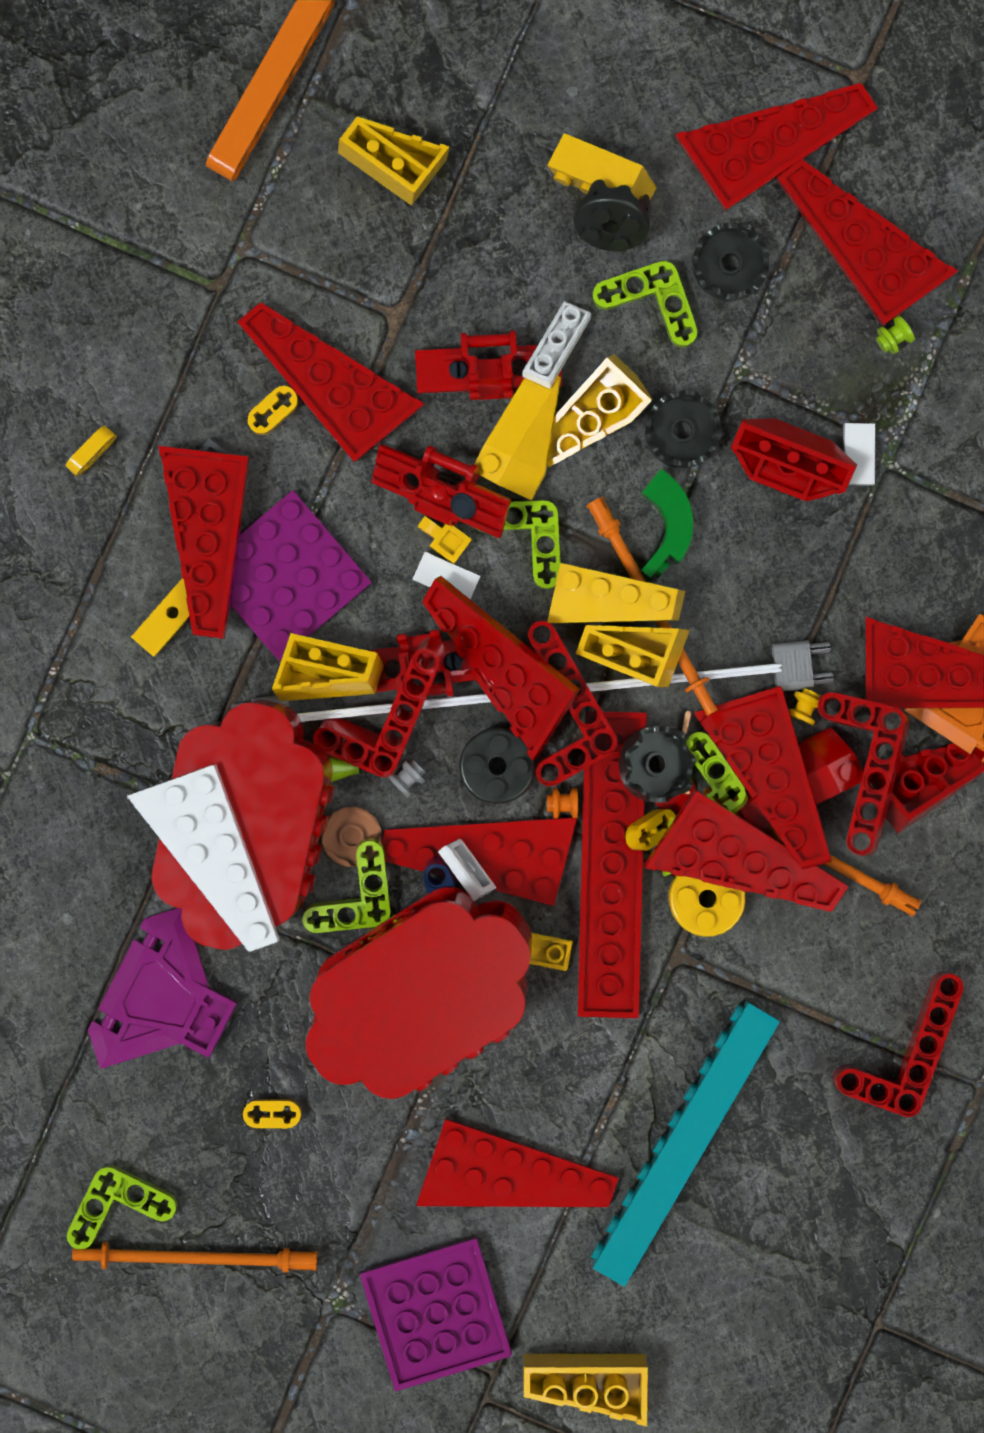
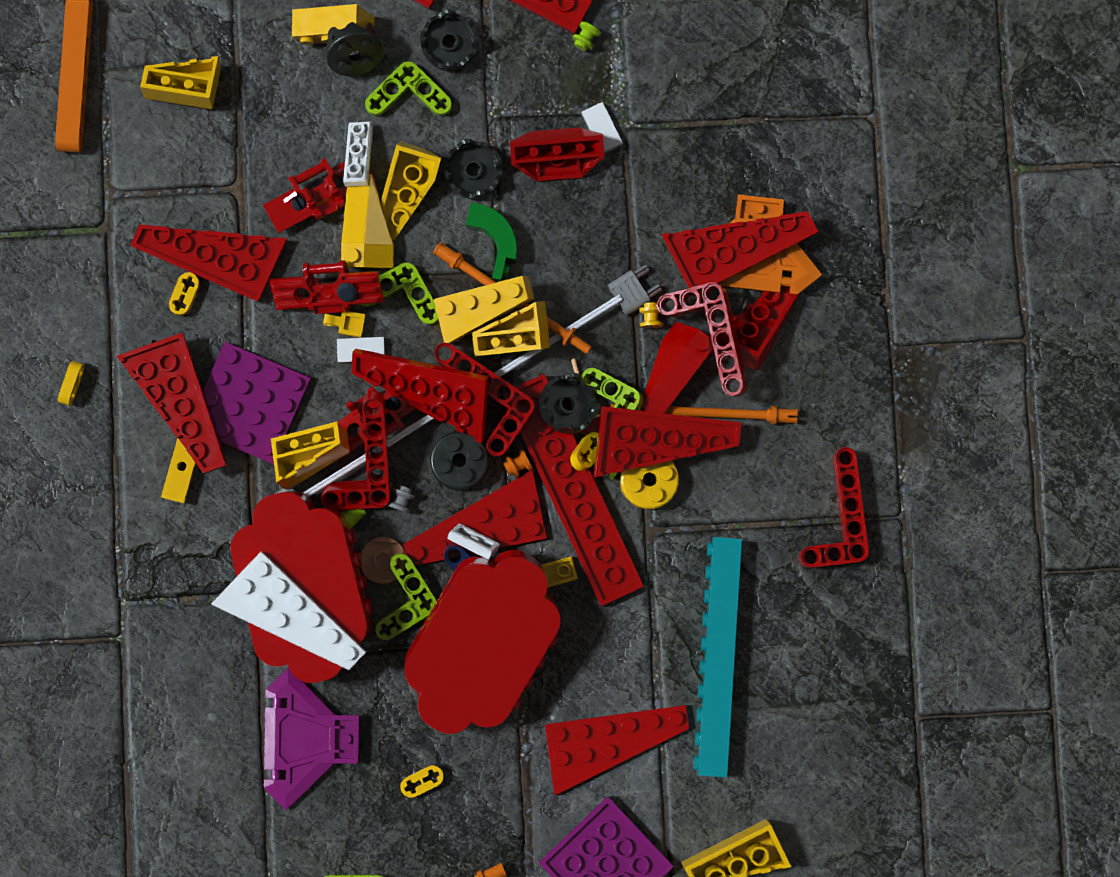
camera: 25 degrees left, 5 degrees down
(766, 757) = (641, 362): red wing -> none

